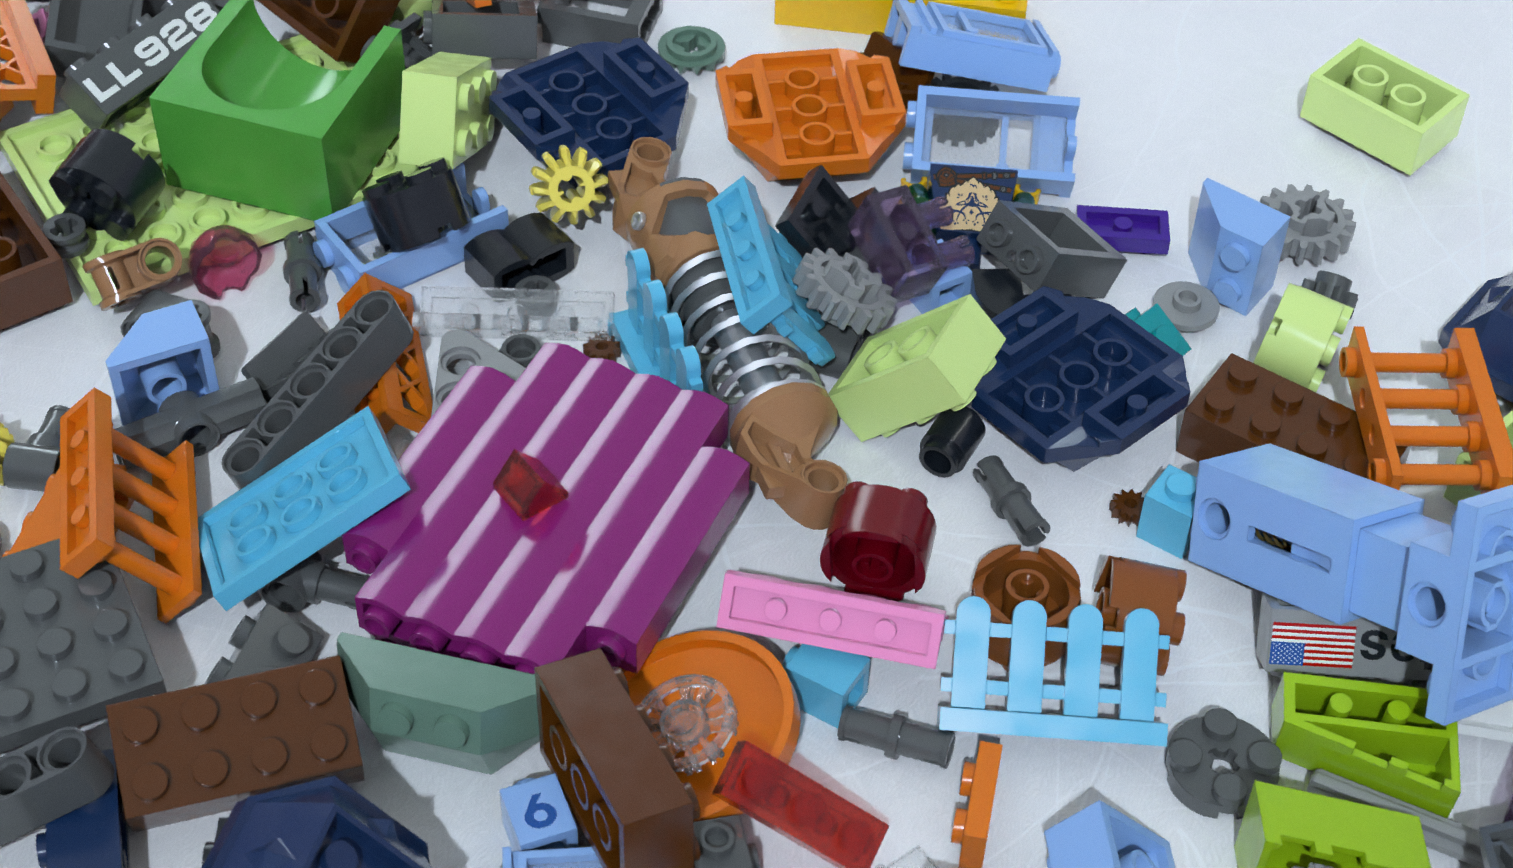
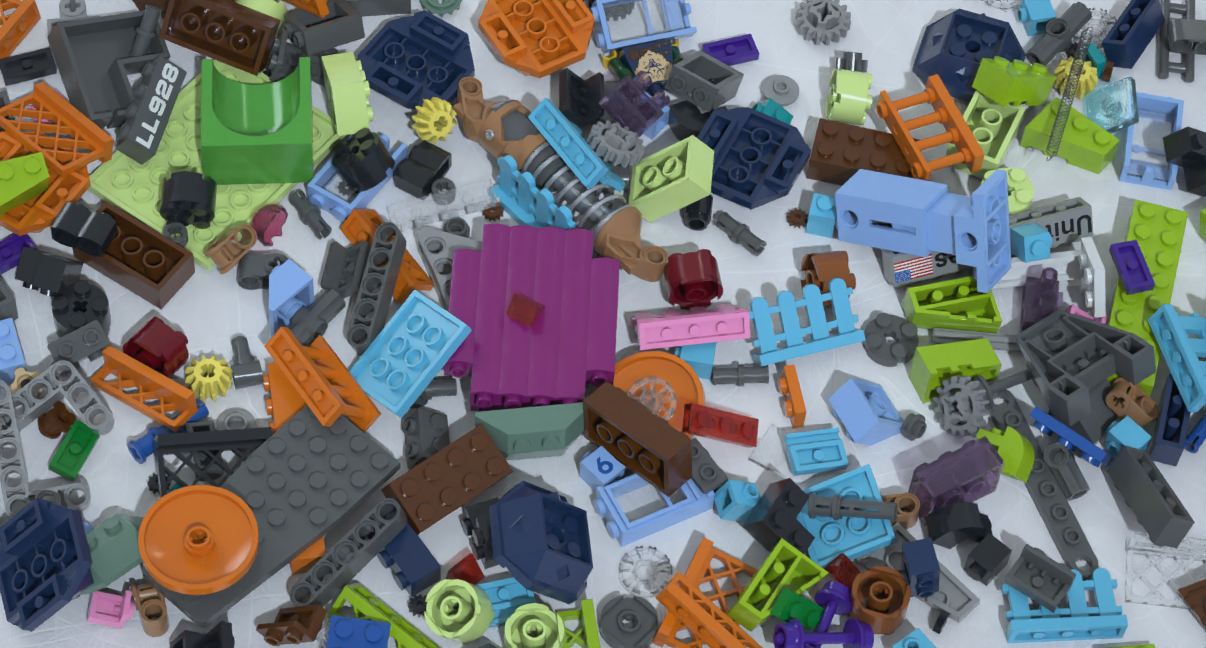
camera: 25 degrees left, 10 degrees up
(1015, 576) = (769, 279): dark orange brick -> none
(1236, 246) = (795, 49): light blue slope -> none

